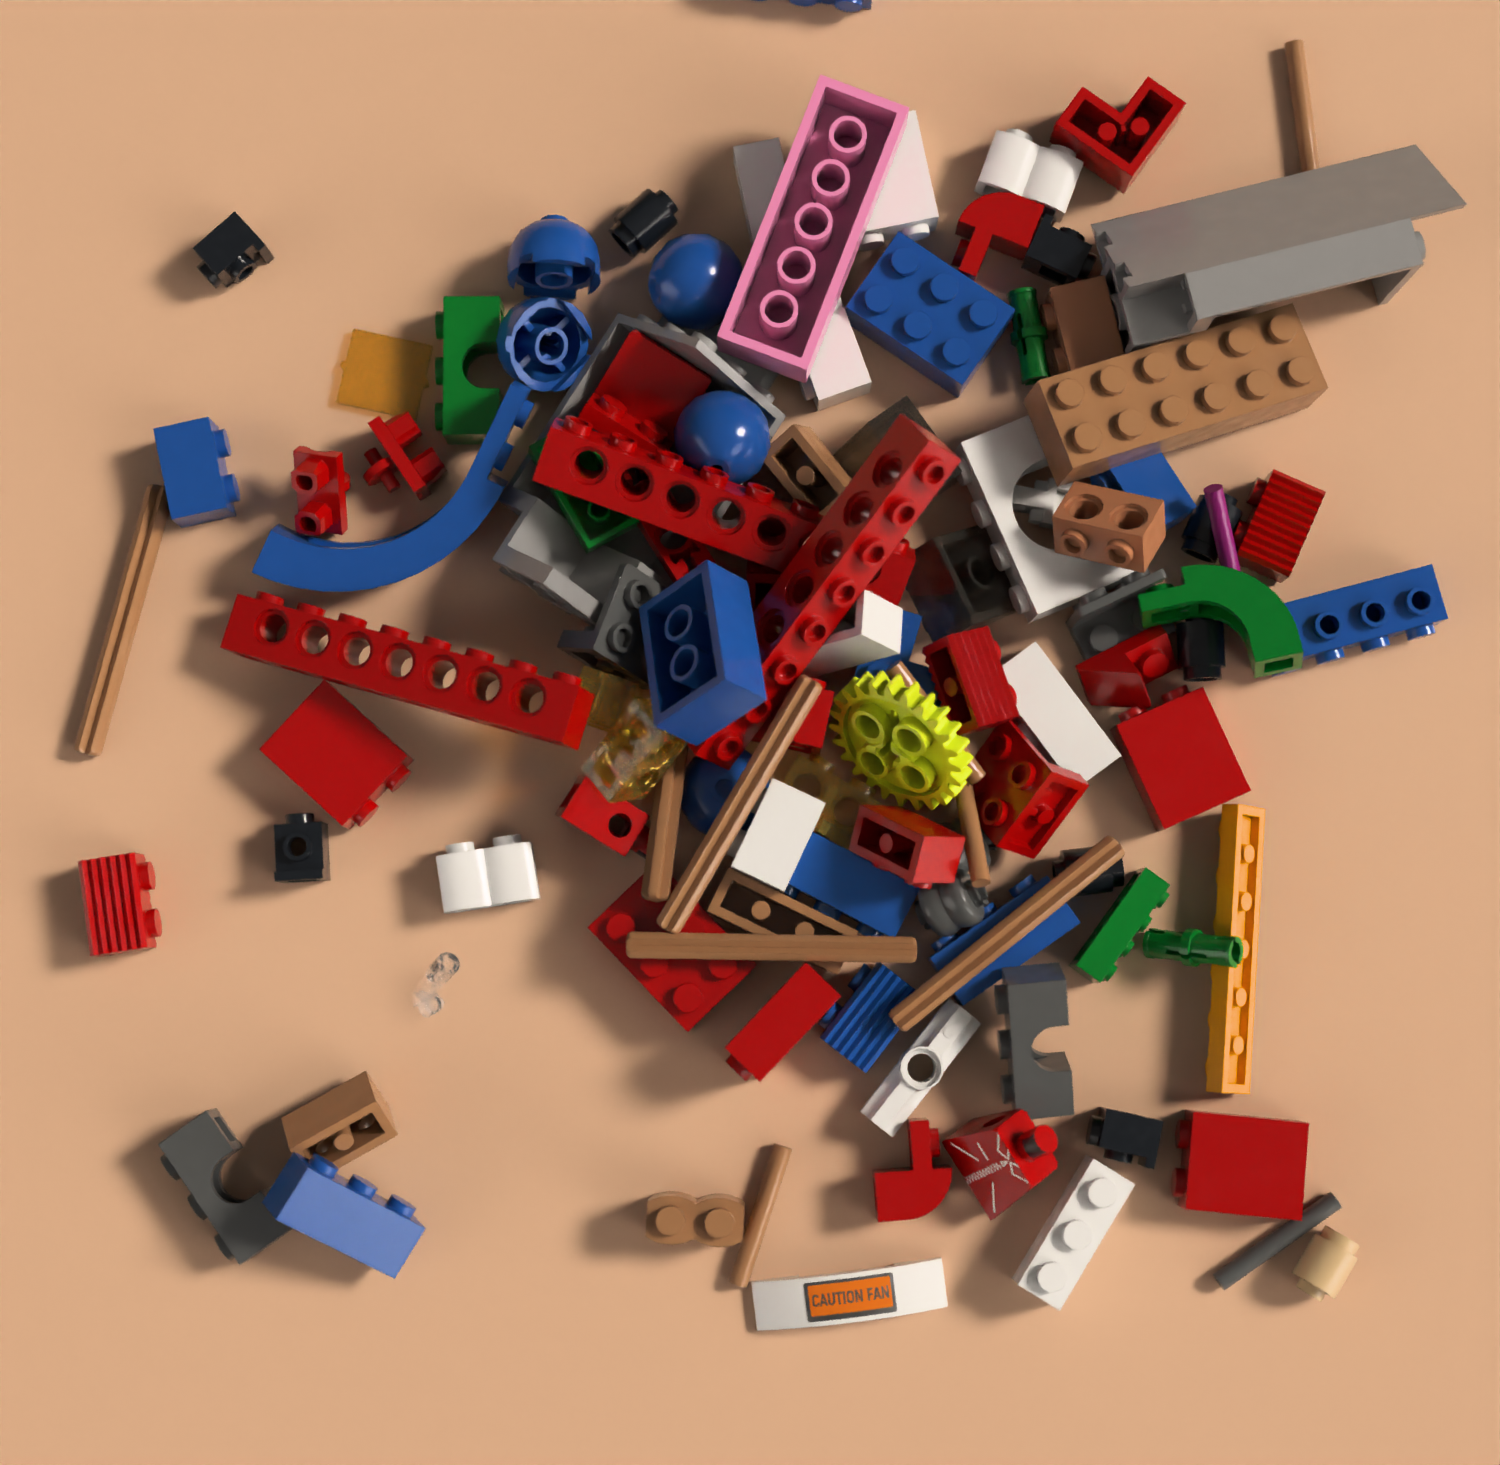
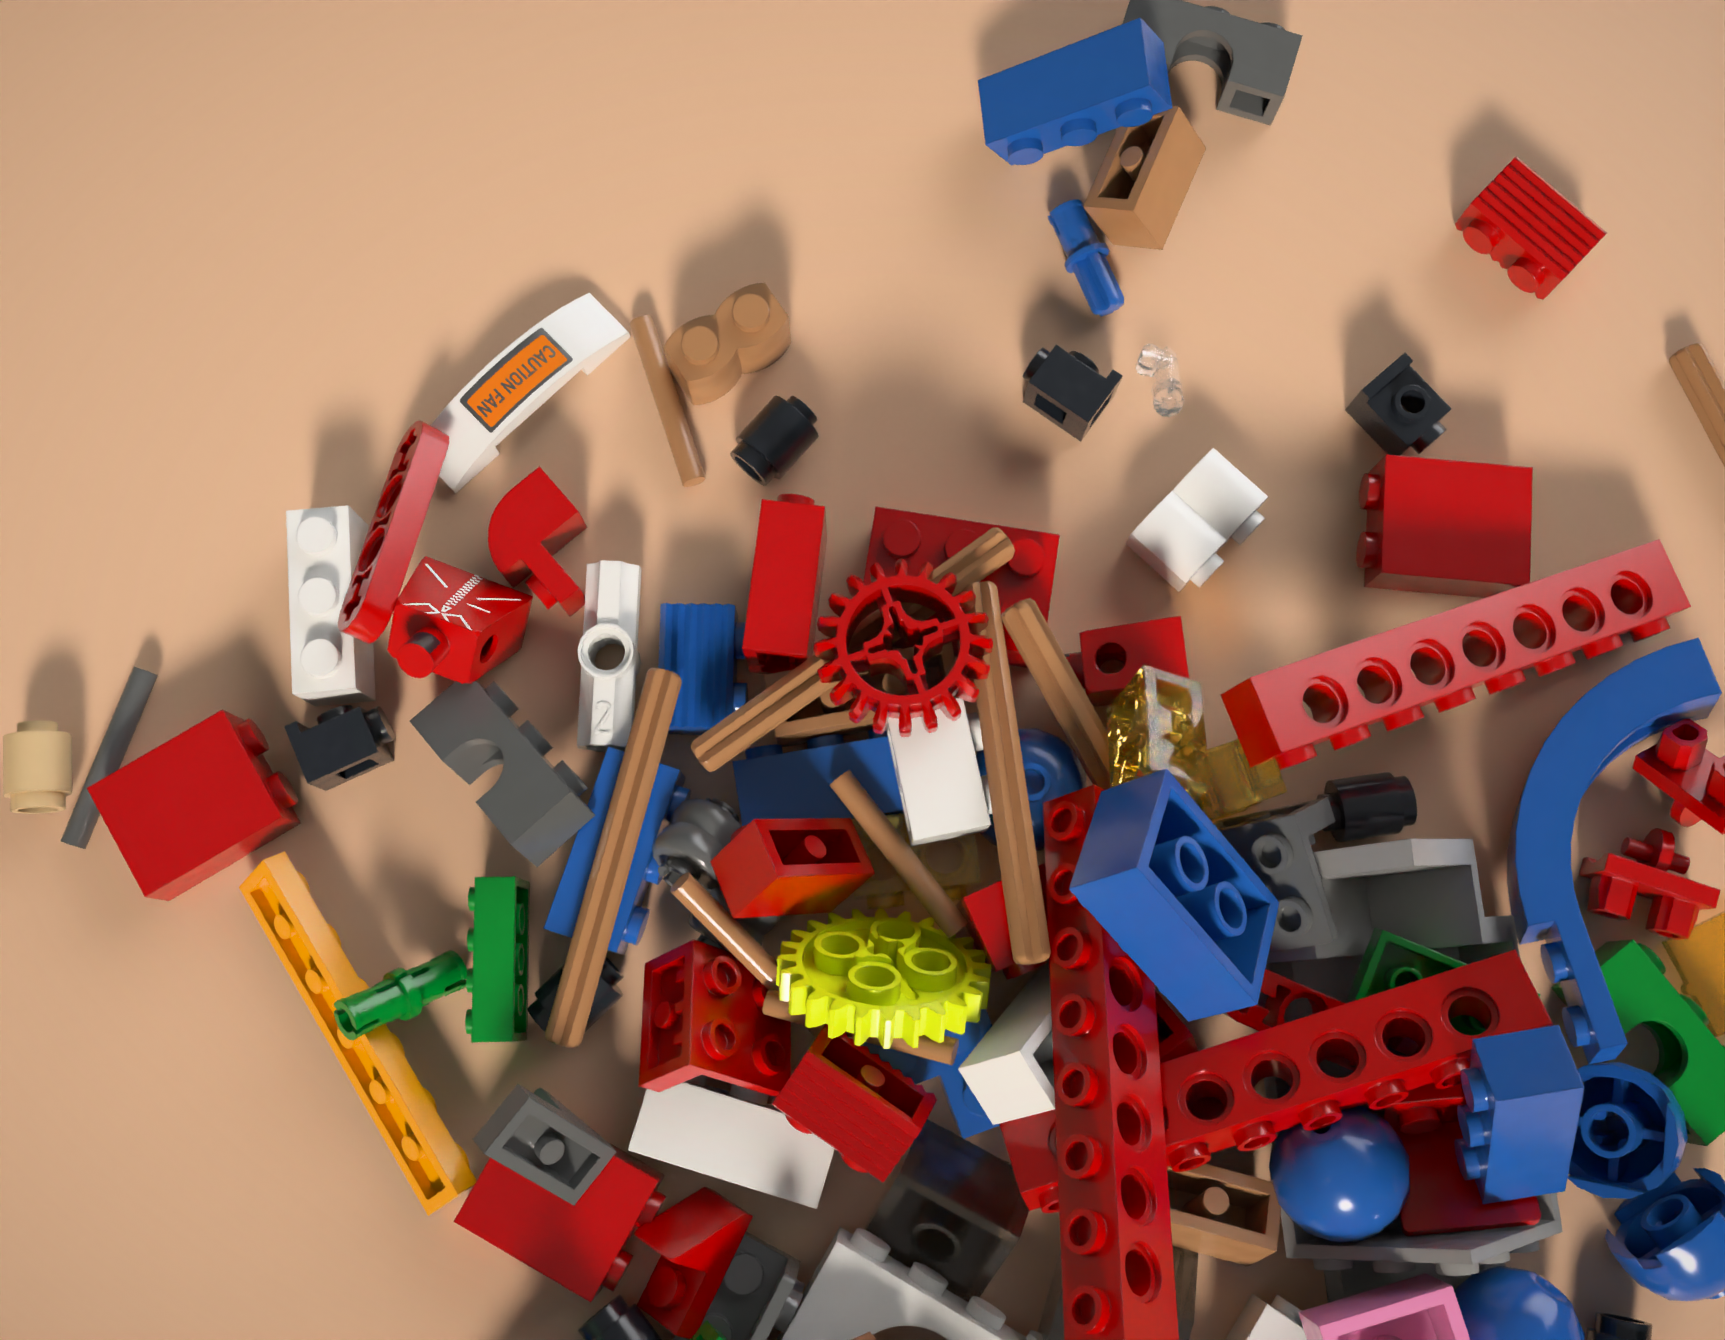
camera: 140 degrees right, 5 degrees down
(416, 1104) = (1086, 257): none -> blue axle
(499, 1023) = (1068, 389): none -> black brick
(528, 626) = (1370, 806): none -> black brick
(608, 394) = (1519, 1114): none -> blue brick
(706, 905) = (931, 635): none -> red gear
(712, 1132) = (775, 439): none -> black brick
(836, 806) = (899, 854): none -> medium nougat bar
(1000, 1245) = (393, 533): none -> beam
(1166, 791) = (545, 1143): none -> dark grey slope

